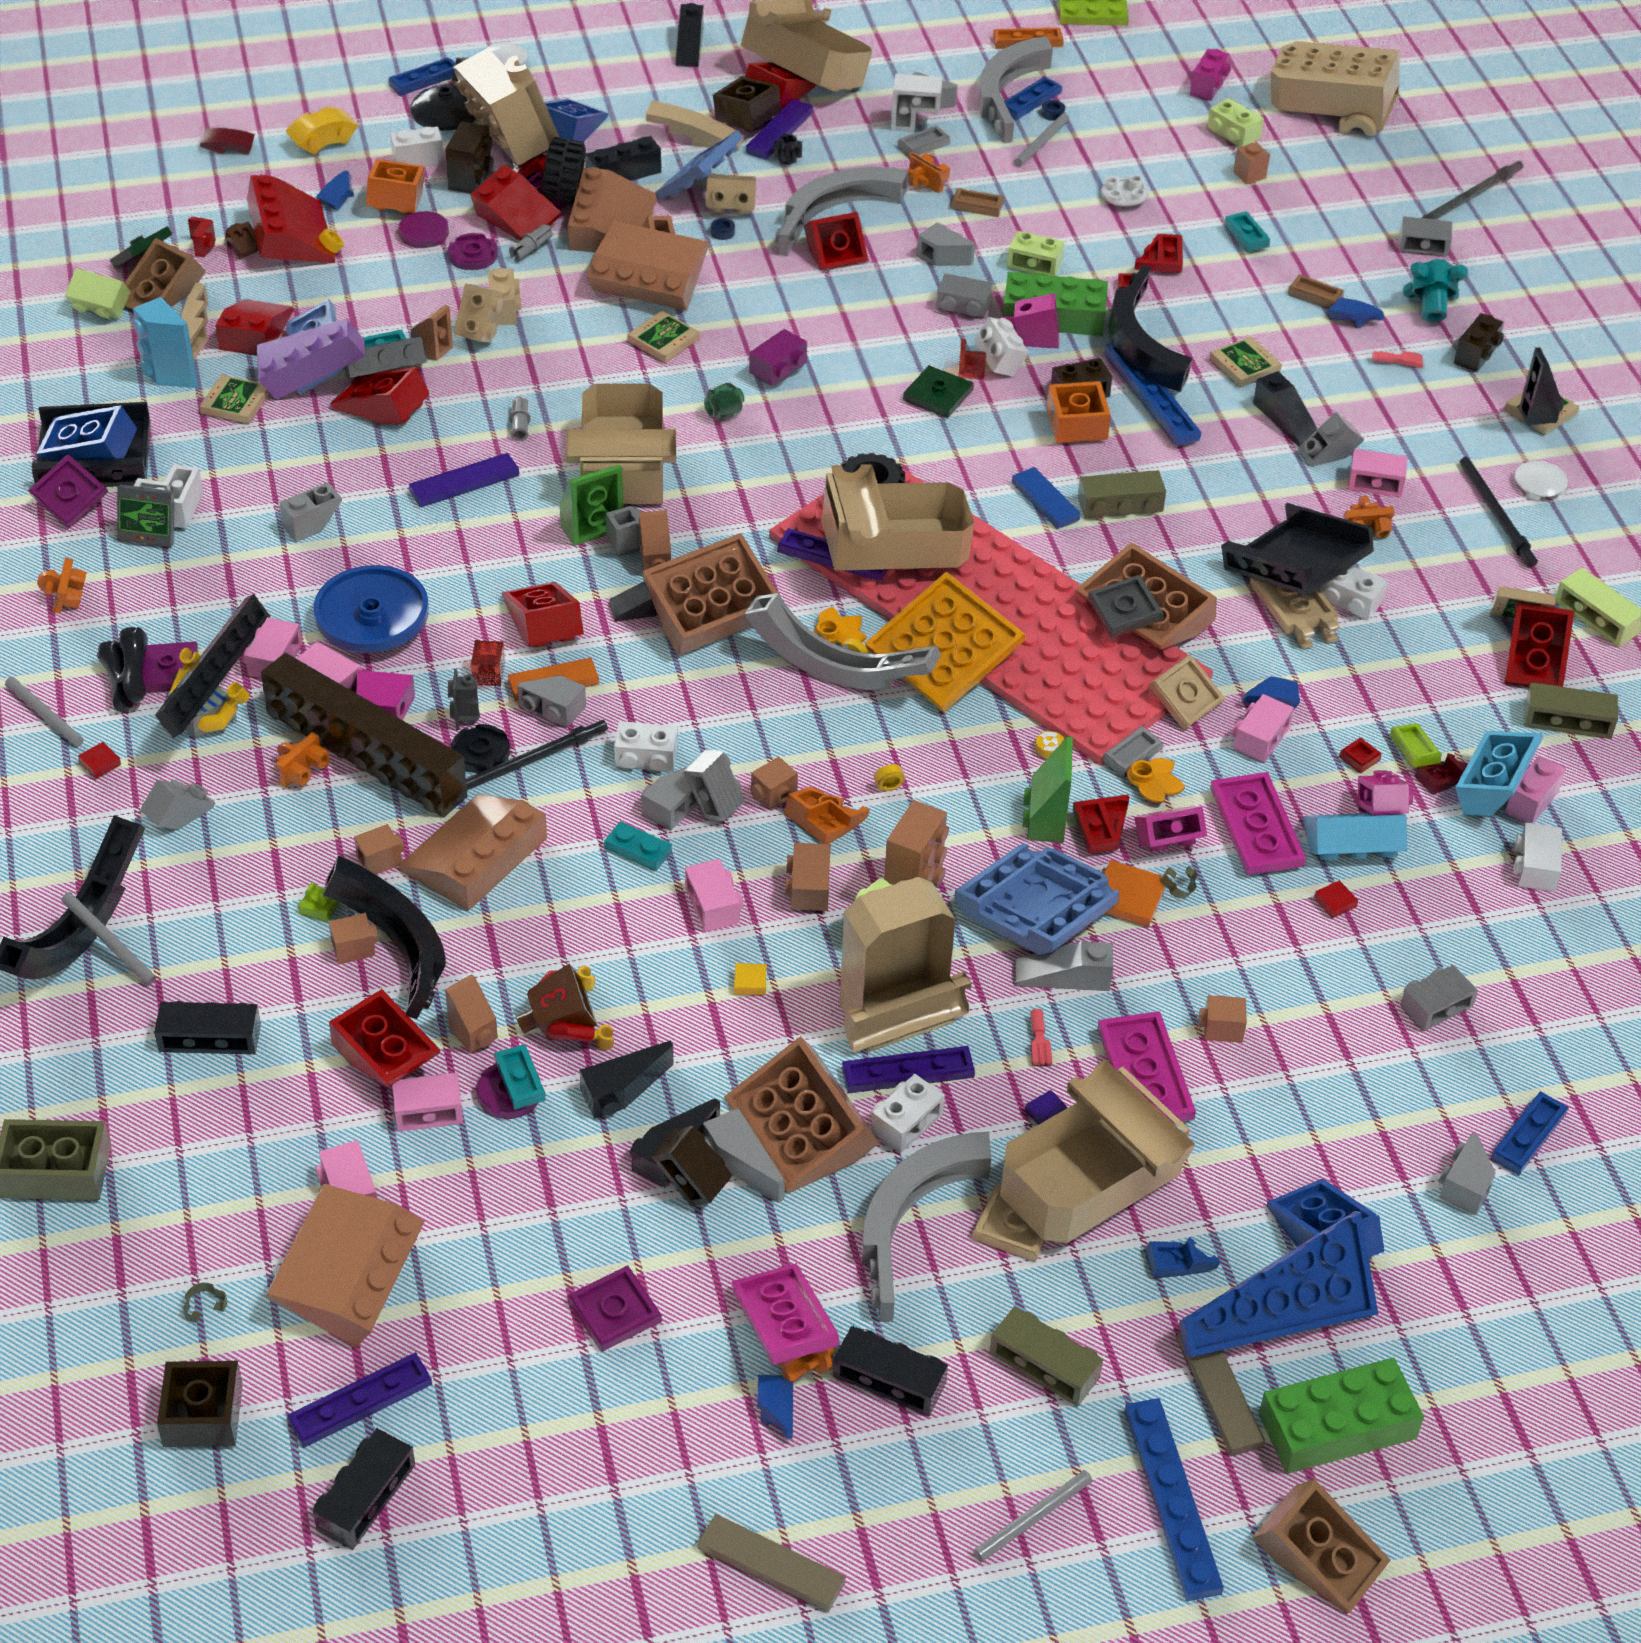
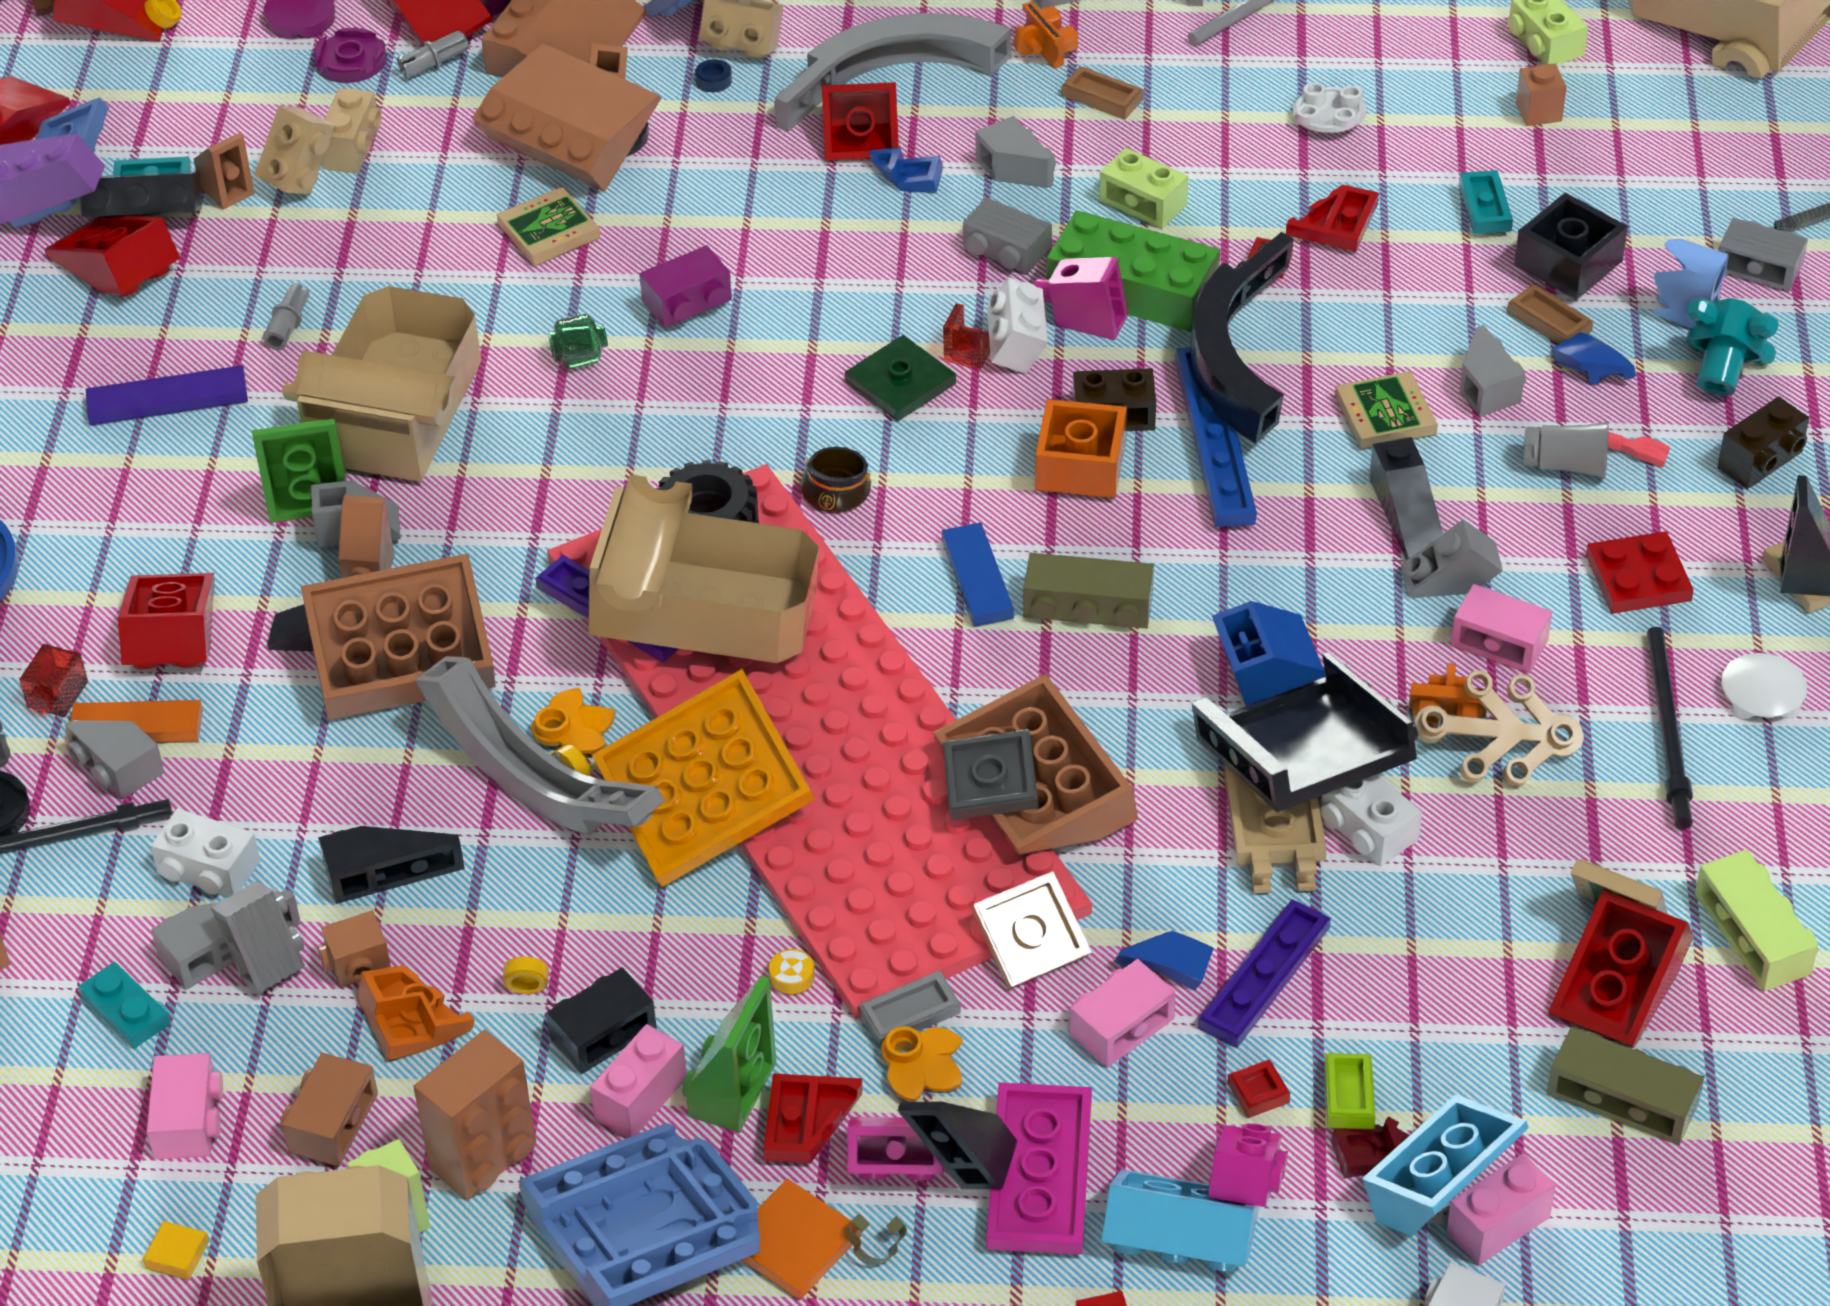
camera: 20 degrees right, 0 degrees up
(763, 727) = (381, 859): none -> black slope
(880, 269) = (908, 174): none -> blue slope
(930, 457) = (836, 479): none -> piece
(953, 790) = (600, 1019): none -> black brick
(993, 823) = (638, 1081): none -> bright pink brick
(1219, 812) = (966, 1141): none -> black slope
(1247, 509) = (1267, 650): none -> blue slope
(1300, 330) = (1490, 375): none -> light grey slope
(1314, 247) = (1570, 245): none -> black brick
(1331, 691) = (1264, 973): none -> dark purple tile
(1368, 364) = (1568, 448): none -> light grey plant
(1398, 259) = (1699, 279): none -> light blue piece
(1412, 528) = (1505, 728): none -> tan plant
(1439, 428) = (1639, 572): none -> red plate

